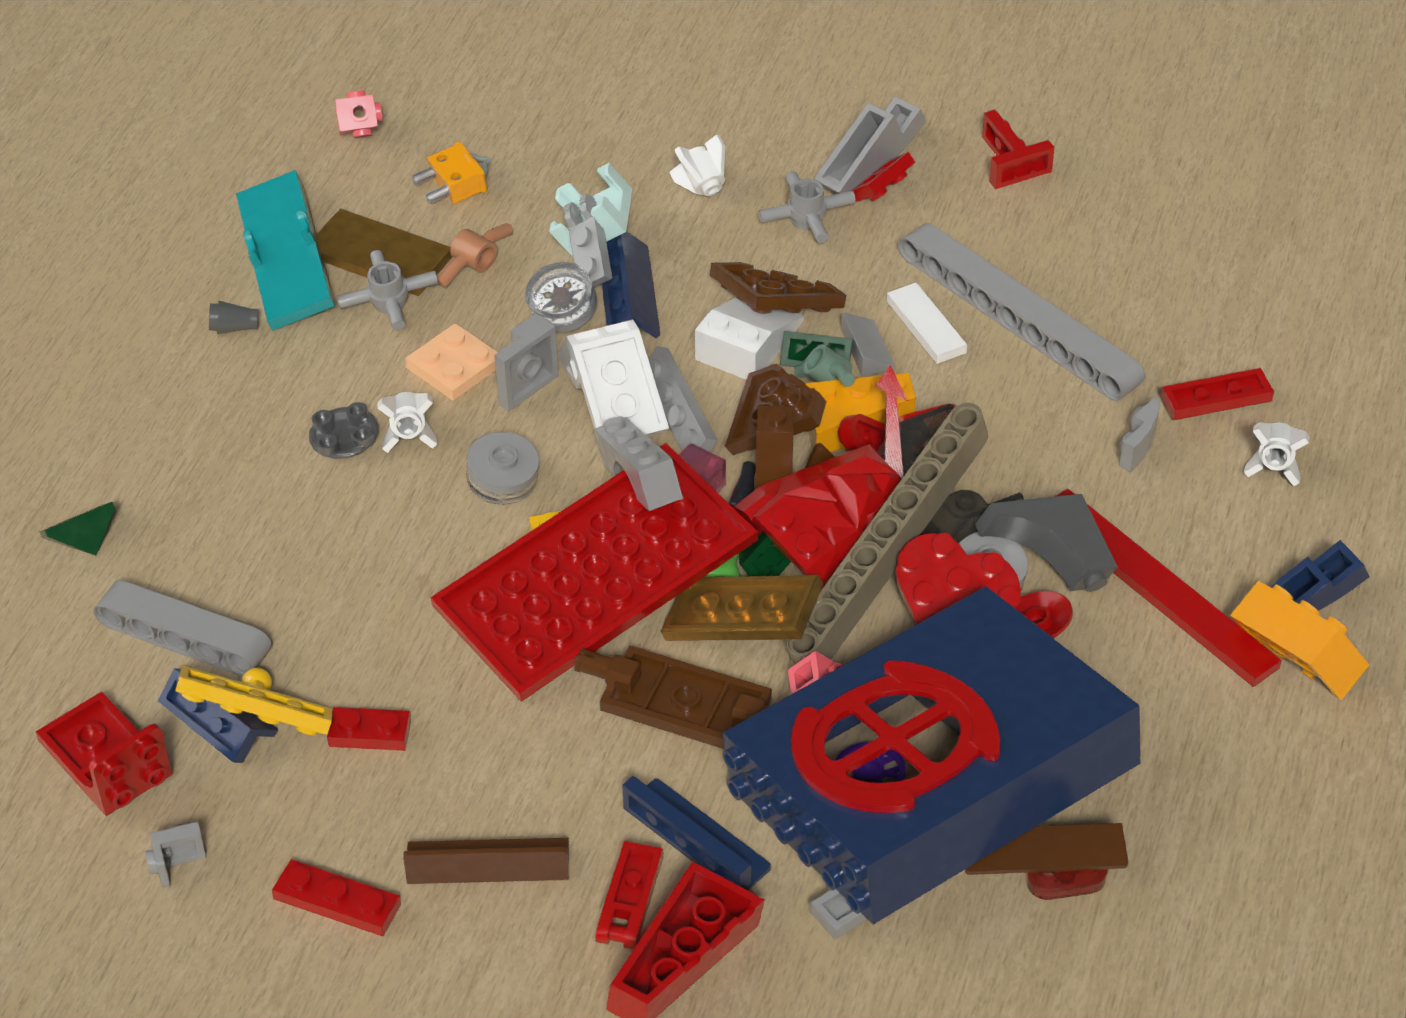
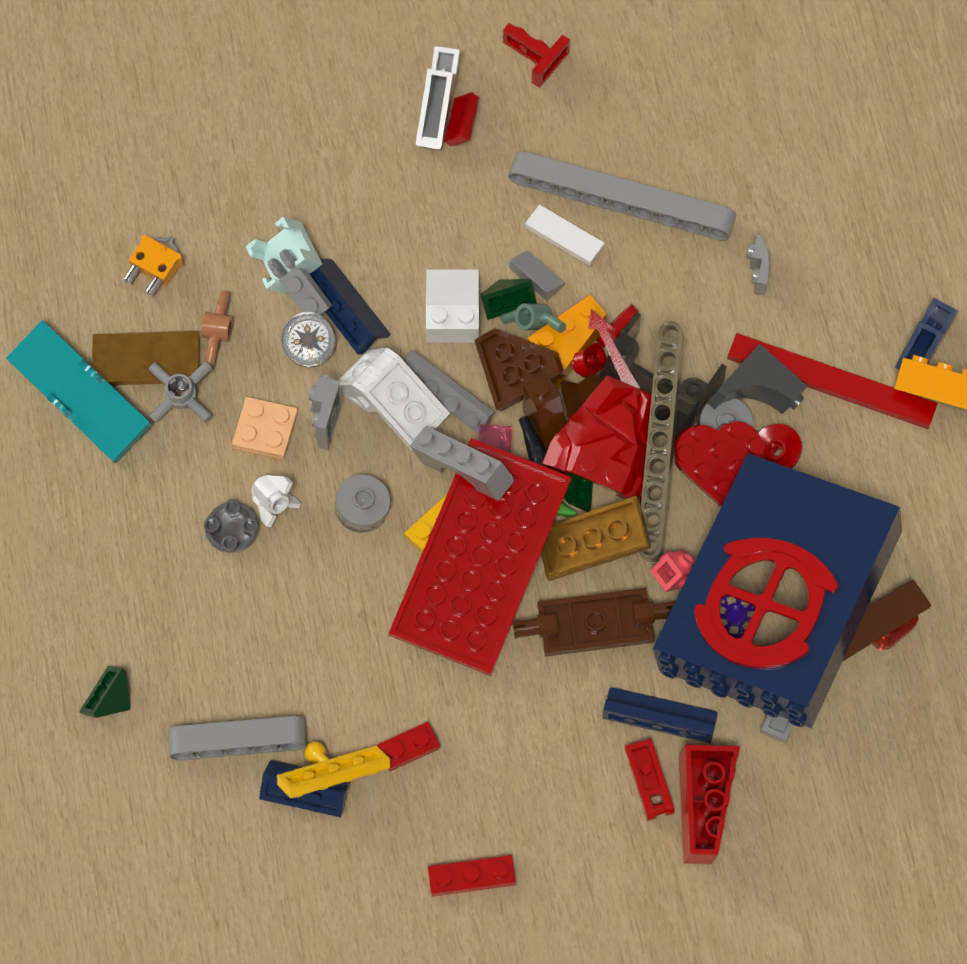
camera: 30 degrees left, 20 degrees up
(106, 753) = (256, 855): red bracket -> none
(174, 847) = (351, 894): light grey bracket -> none
(230, 317) = (83, 471): dark grey cone -> none
(358, 126) = (48, 243): brick -> none
(487, 860) = (546, 800): reddish brown panel -> none
(701, 168) = (332, 175): white brick -> none
(775, 290) = (449, 261): reddish brown plate -> none
(807, 206) = (425, 172): light grey bar -> none
(1217, 394) = (788, 205): red plate -> none
(1277, 449) = (853, 237): white brick -> none

